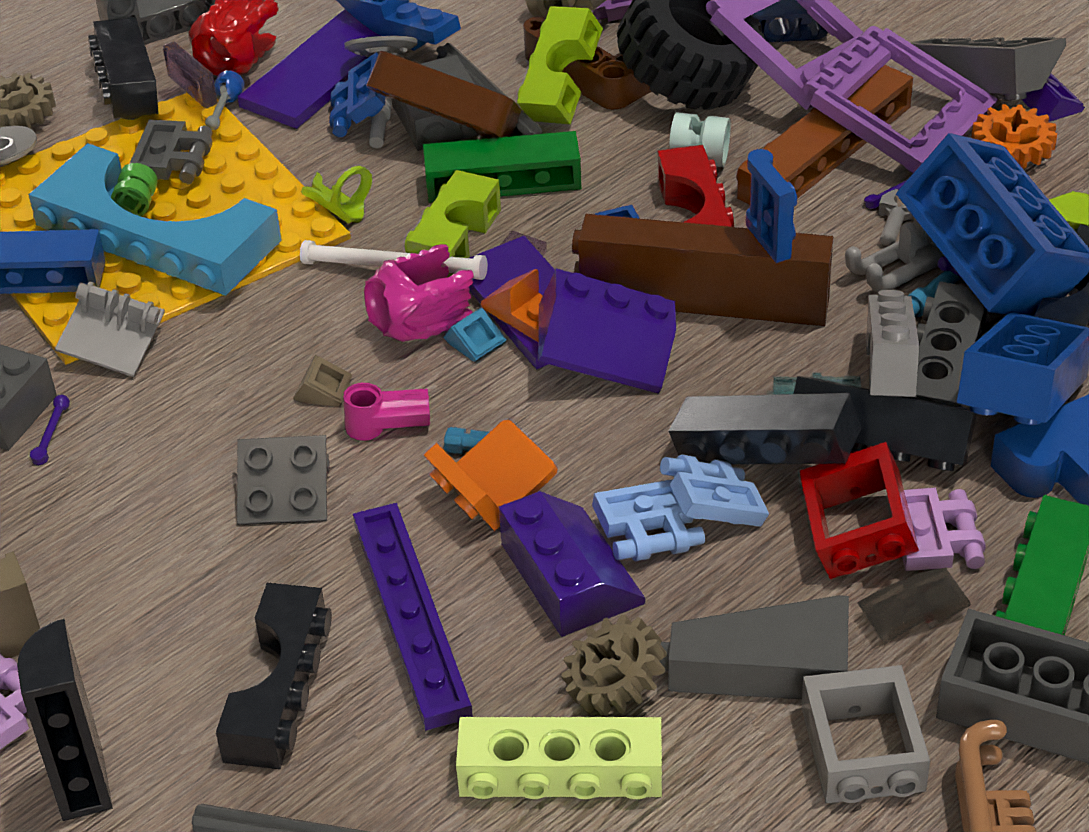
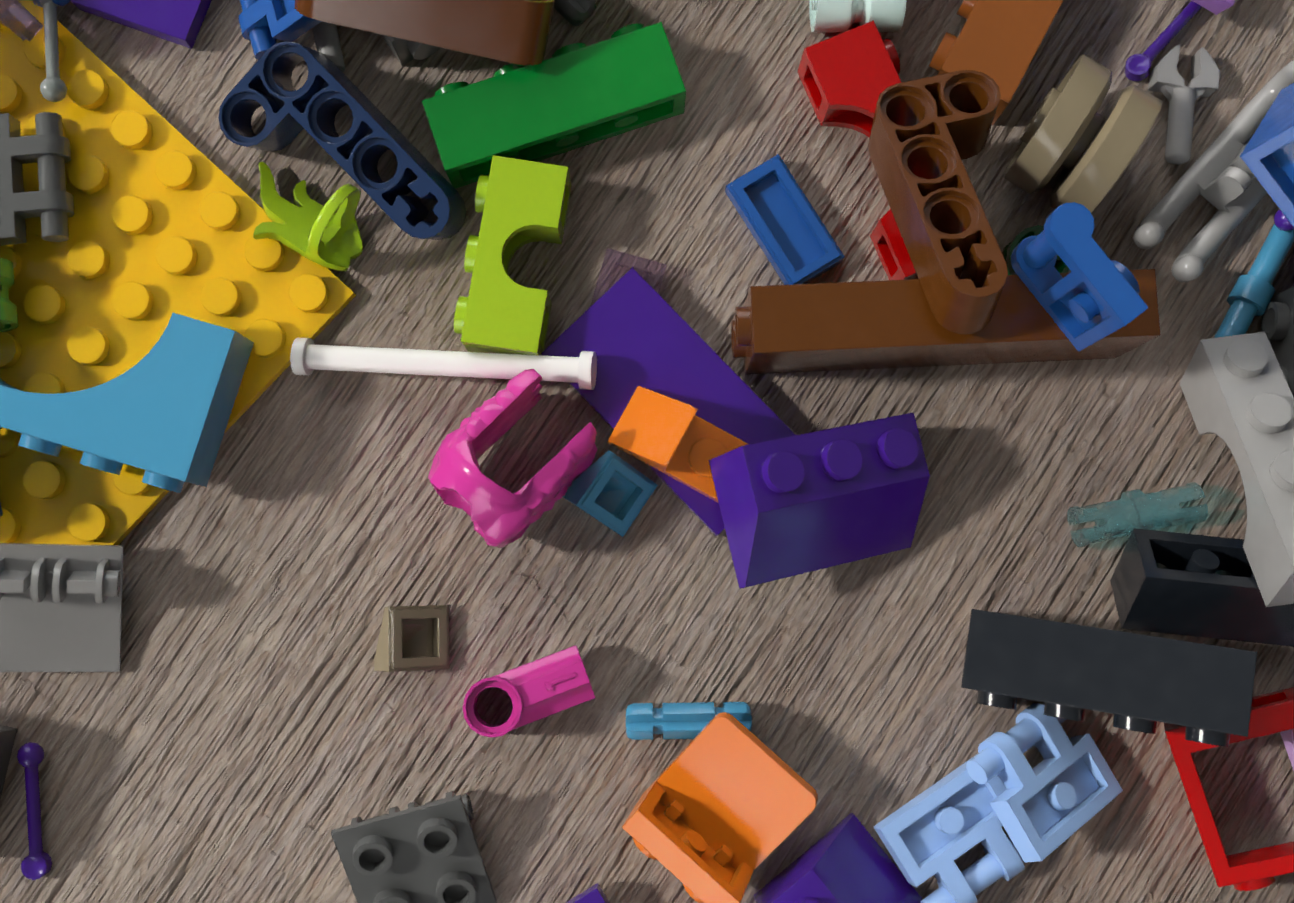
camera: 15 degrees left, 40 degrees up
(357, 137) = (357, 151): none -> dark blue beam
(708, 182) = (918, 152): none -> reddish brown beam
(826, 197) = (1086, 143): none -> dark tan wheel

